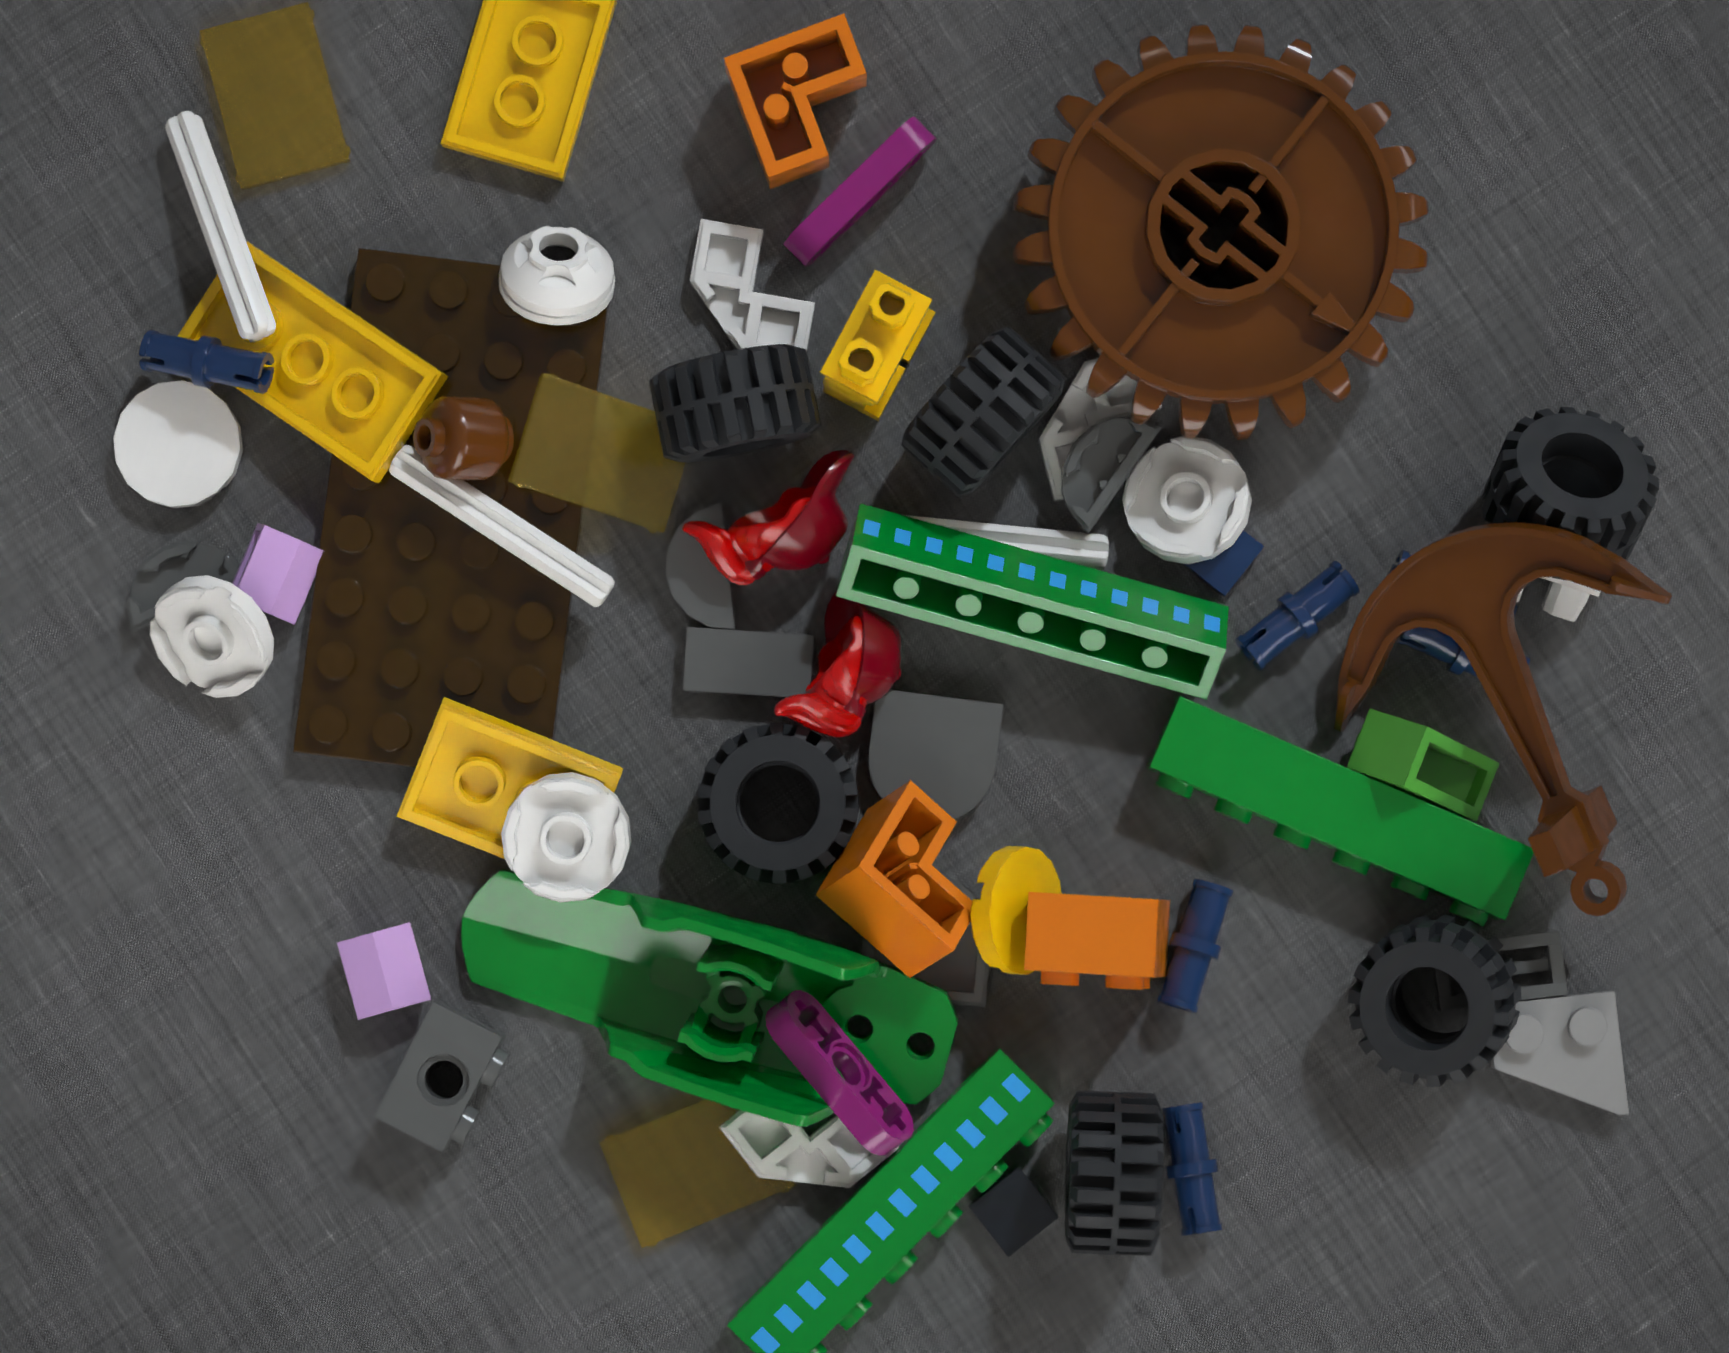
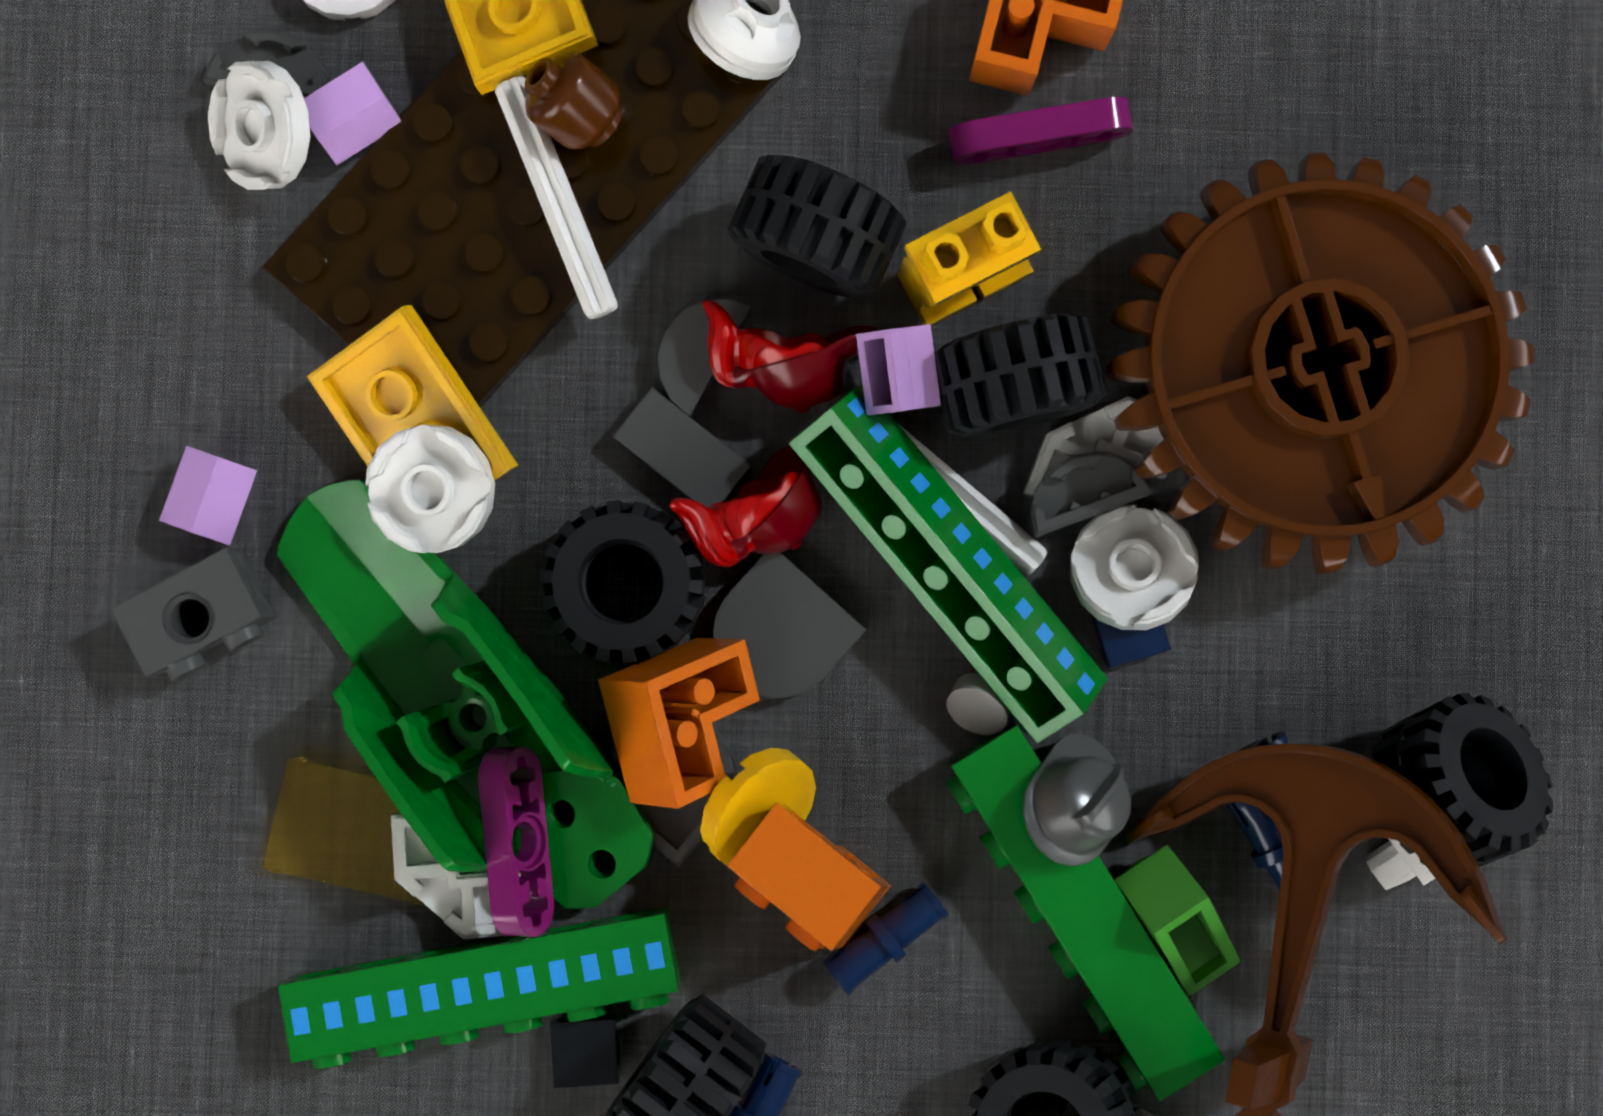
camera: 35 degrees right, 0 degrees up
(596, 454) = (675, 194): clear yellow piece -> none
(725, 281) = (880, 129): white tile -> none
(883, 474) = (898, 369): none -> lavender piece
(1137, 703) = (977, 706): none -> light grey tile
(1270, 724) = (1076, 801): none -> dark grey piece
(1297, 615) = (1159, 725): dark blue pin -> none

